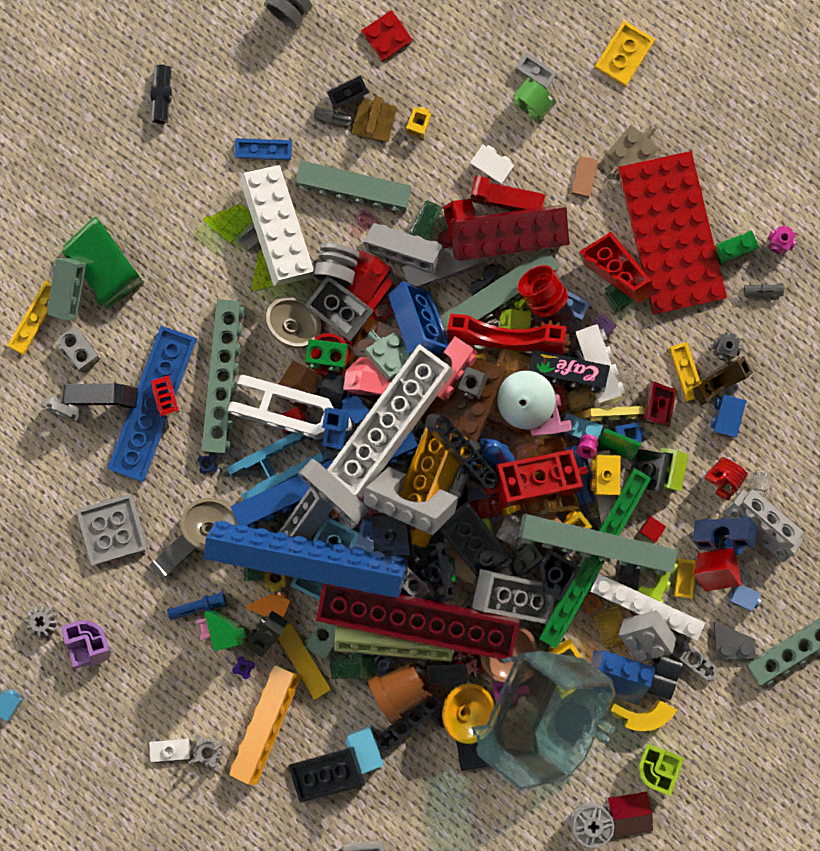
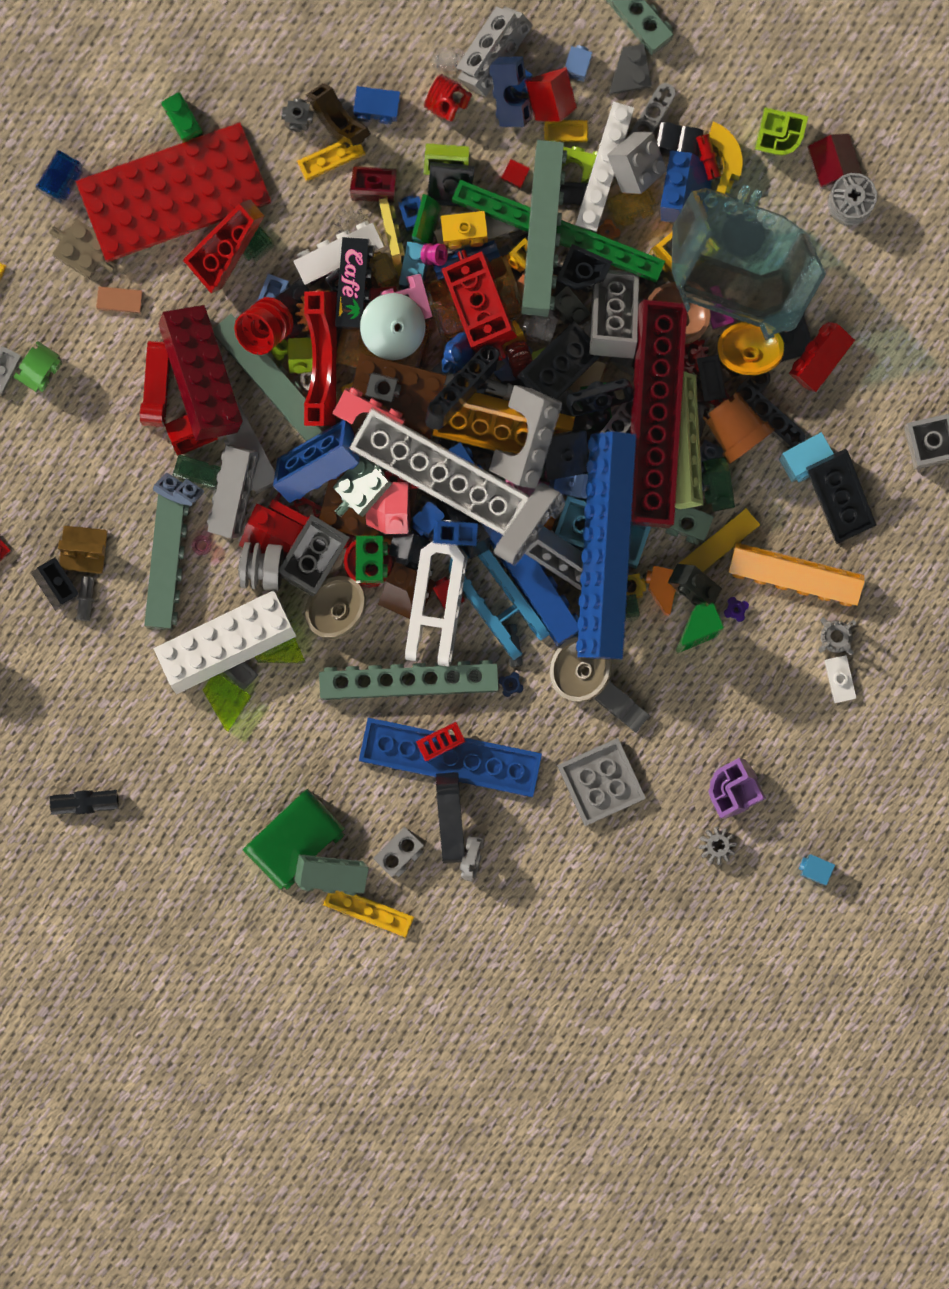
camera: 100 degrees left, 0 degrees up
(203, 628) = (698, 657): bright pink bush -> none
(206, 604) = (670, 661): blue pin -> none
(263, 149) = (134, 673): blue plate -> none
(411, 201) = (183, 493): none -> sand blue slope
(416, 129) = (70, 493): yellow brick -> none
(445, 239) = (213, 449): dark red plate -> none
(454, 776) = (821, 356): none -> red brick
(489, 275) = (249, 392): black slope -> none
(492, 165) = (120, 407): white brick -> none
(606, 323) = (288, 256): medium lavender tile -> none
(645, 701) = (708, 156): none -> red pin
(697, 139) = (59, 177): none -> clear blue brick
(764, 290) = (226, 82): dark grey pin -> none
(777, 244) = (166, 75): dark pink brick -> none

